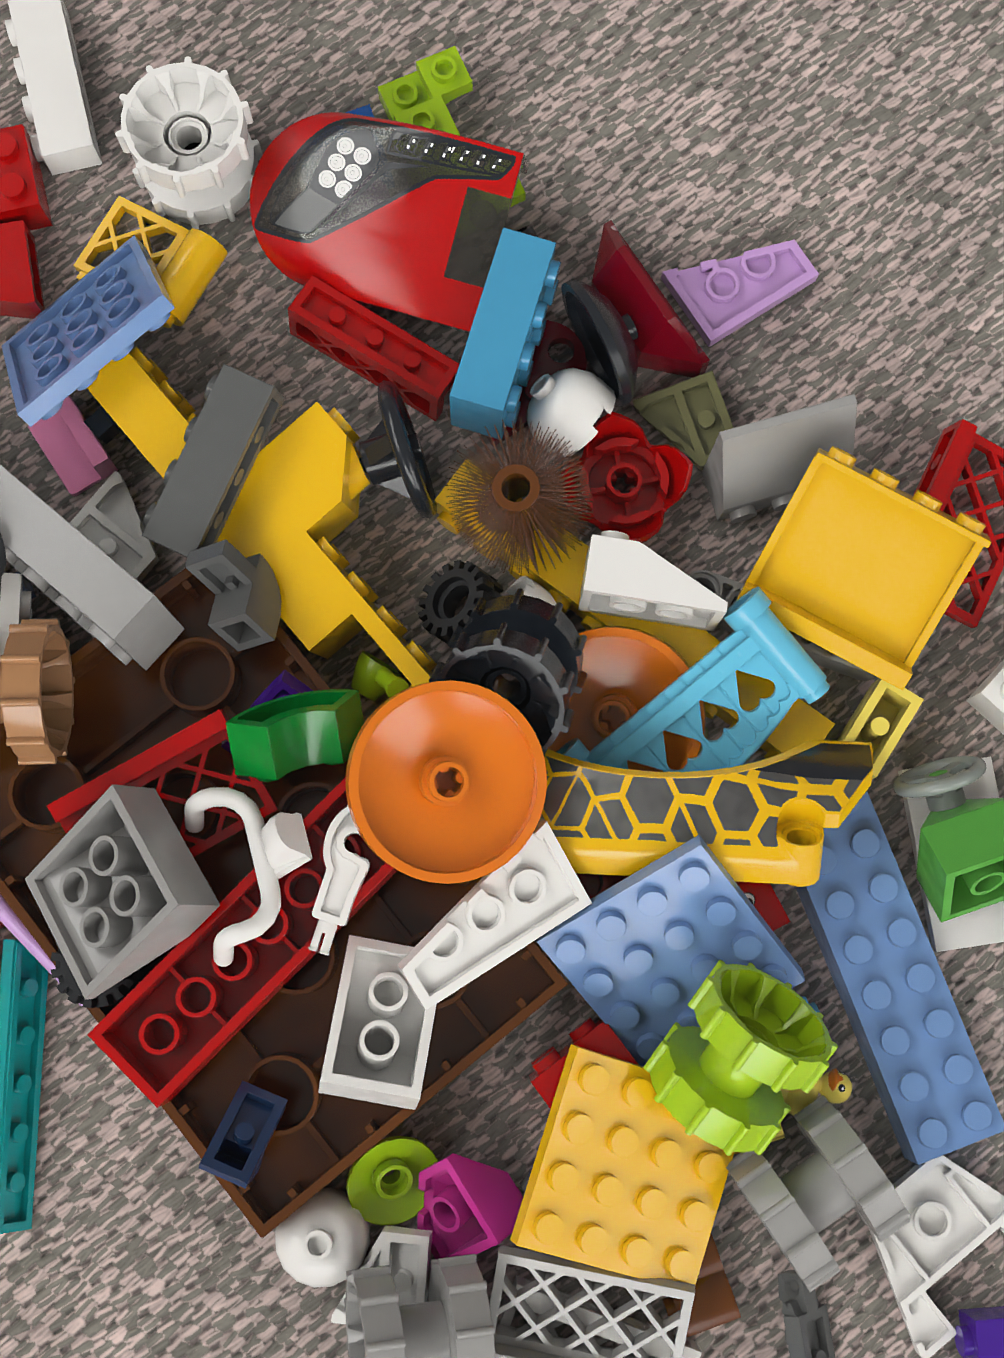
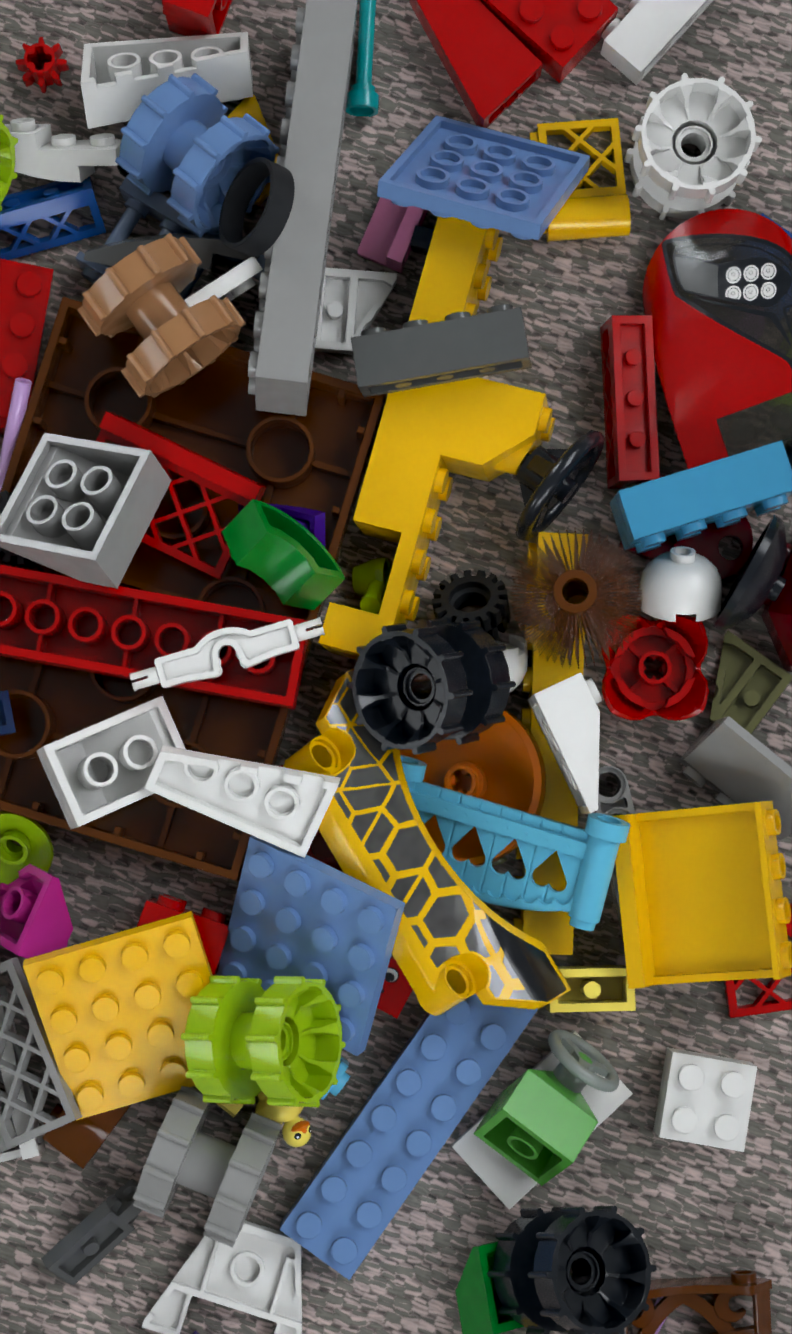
camera: 55 degrees right, 5 degrees up
(246, 594) = (358, 446): dark grey brick -> none
(275, 851) = (183, 601): white piece -> none
(446, 781) = (316, 690): orange dish -> none

